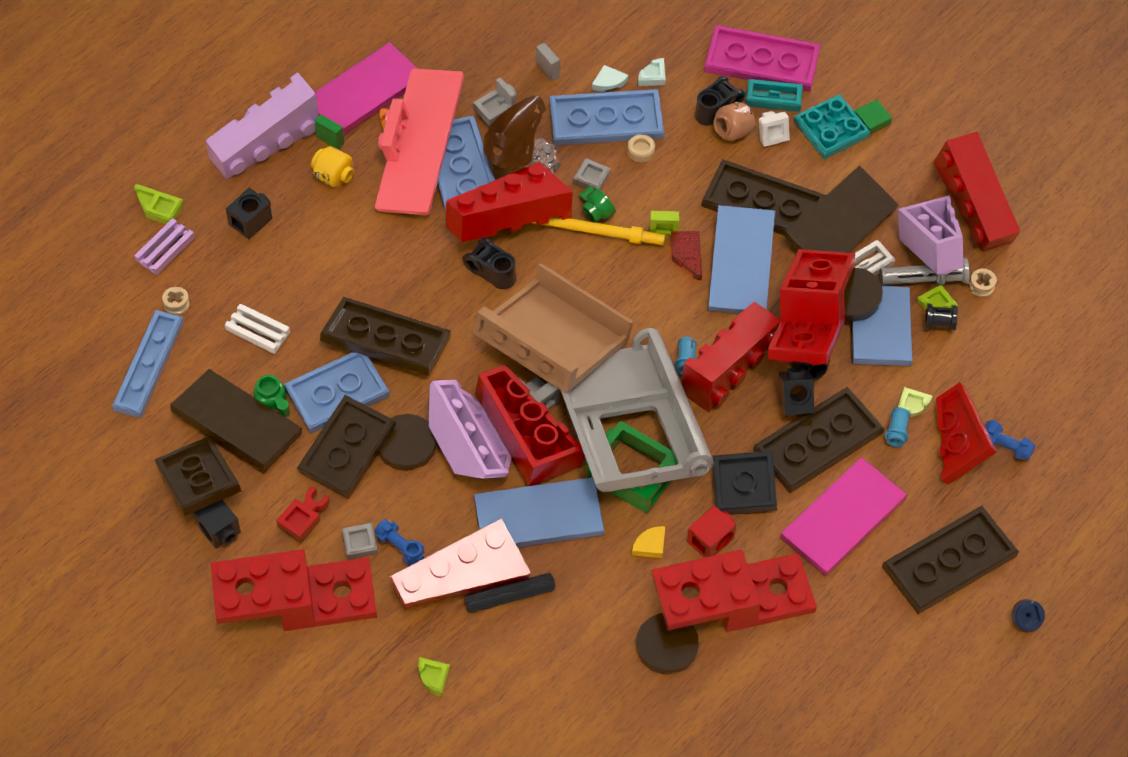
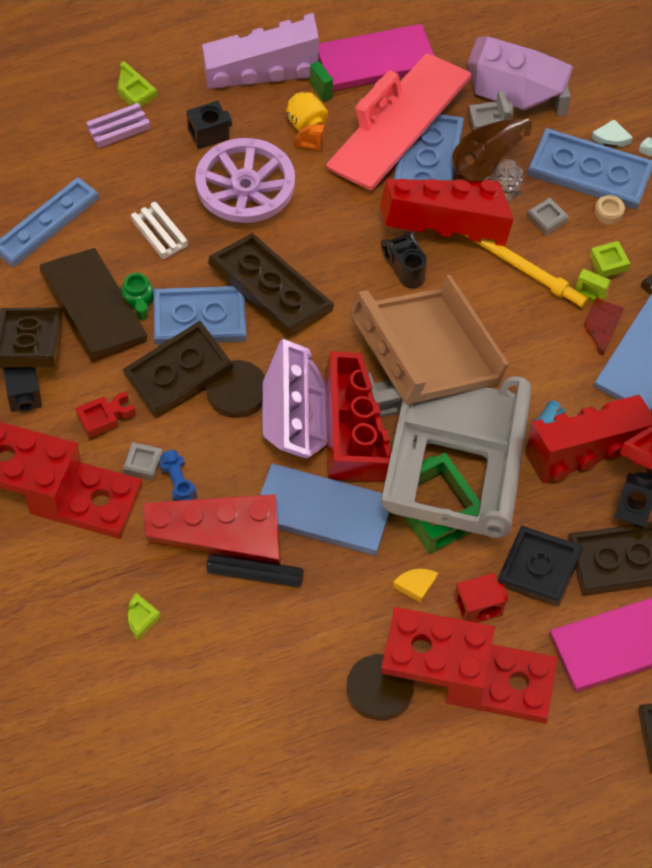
camera: 25 degrees right, 0 degrees up
(175, 307) = (95, 181): tan bush -> none
(313, 253) = (245, 183): none -> lavender wheel
(347, 188) = (310, 137): none -> orange tile
(495, 55) = (520, 72): none -> lavender wedge
(596, 204) = (536, 244): green piece -> none
(666, 193) = (609, 259): none -> lime tile

